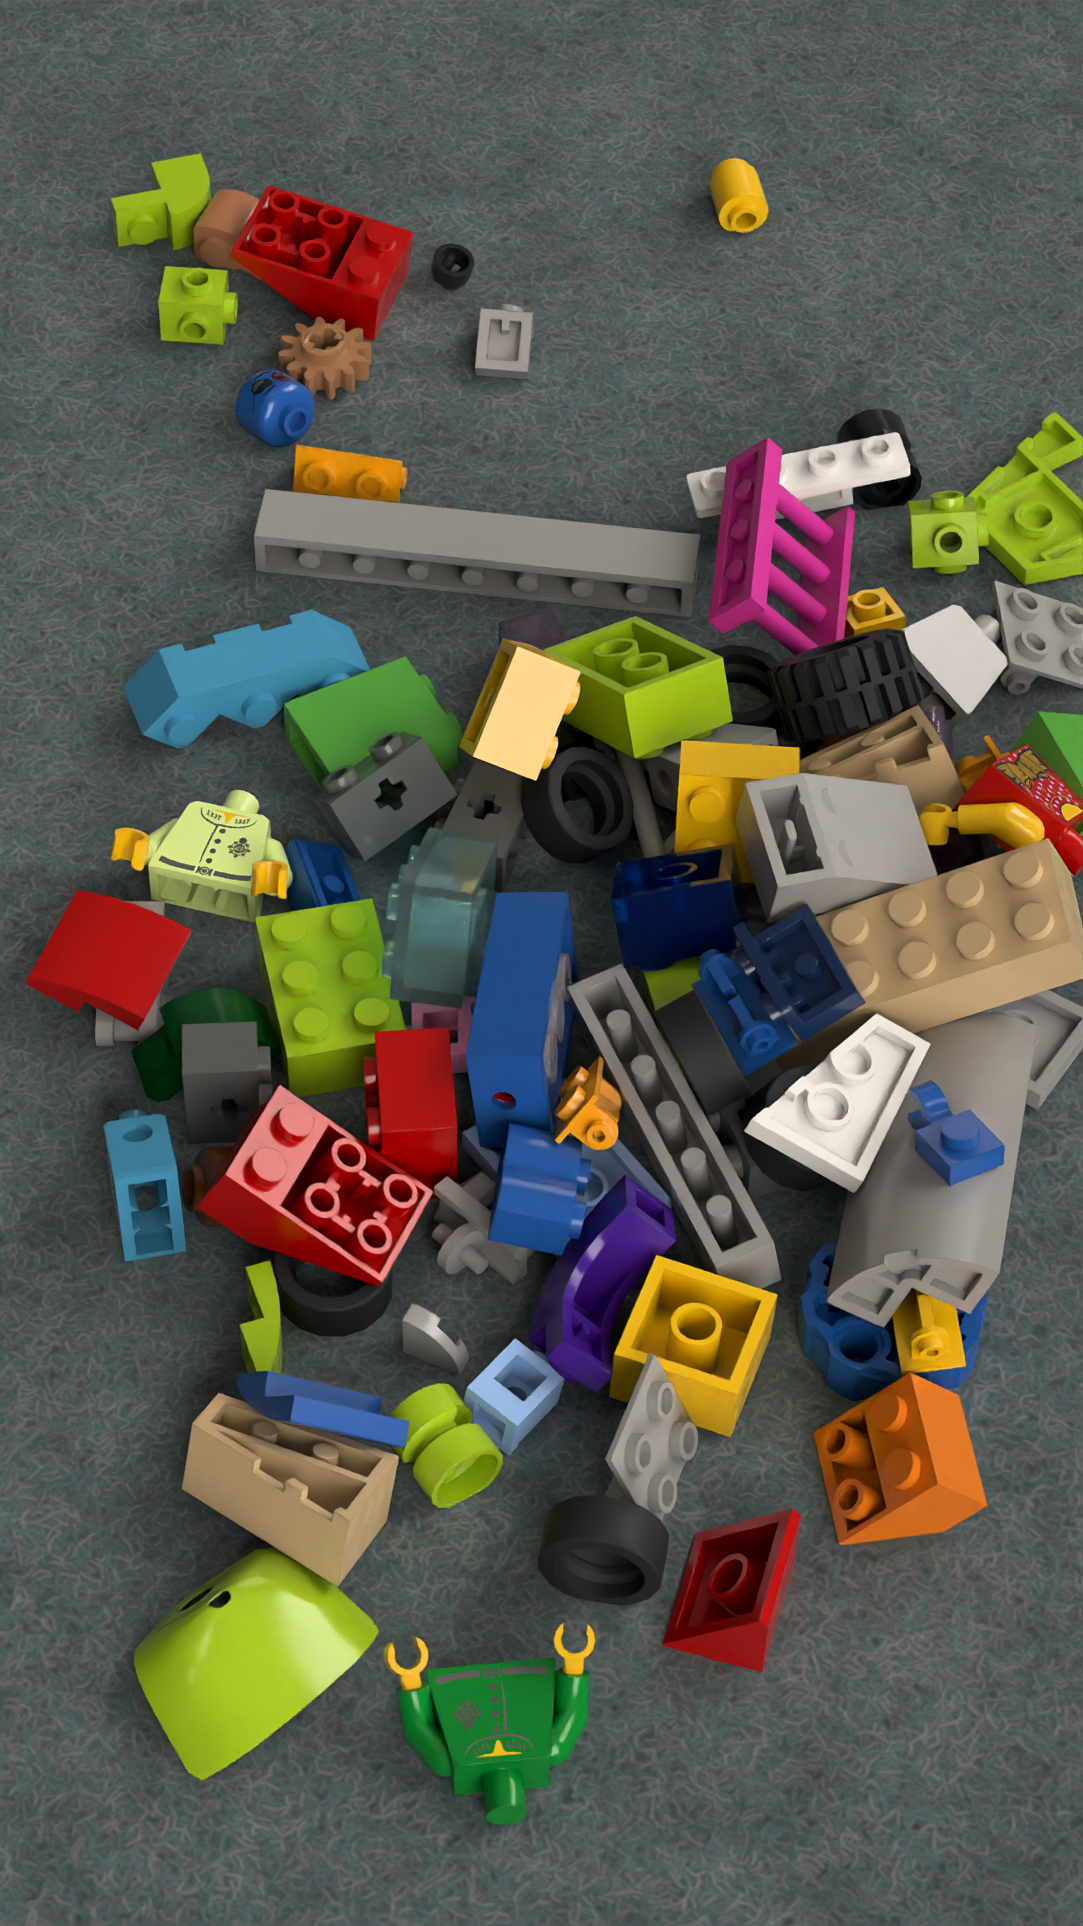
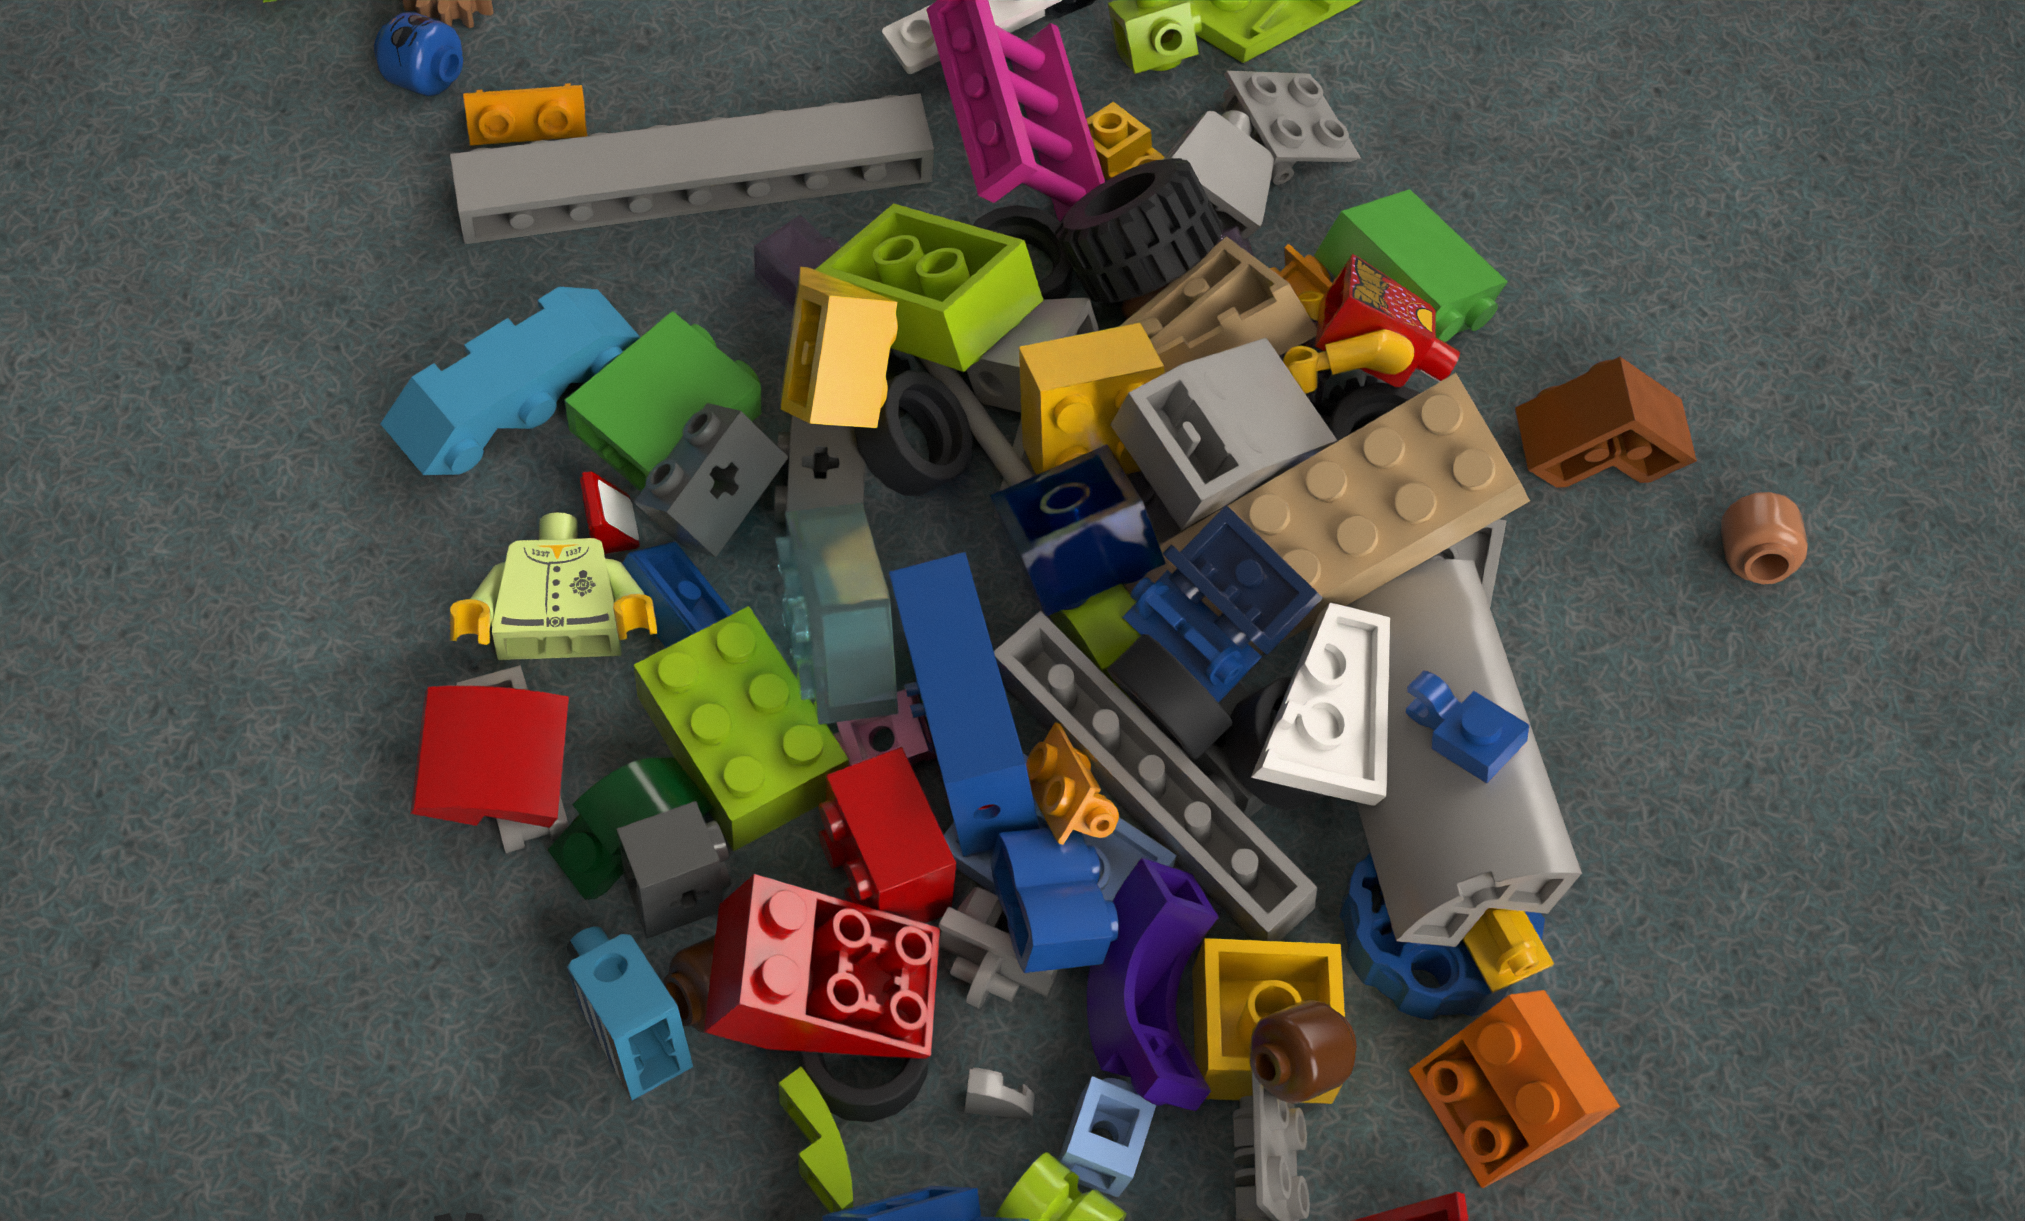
camera: 25 degrees left, 10 degrees up
(288, 806) = (609, 514): none -> red slope
(693, 1349) = (1302, 1051): none -> reddish brown head

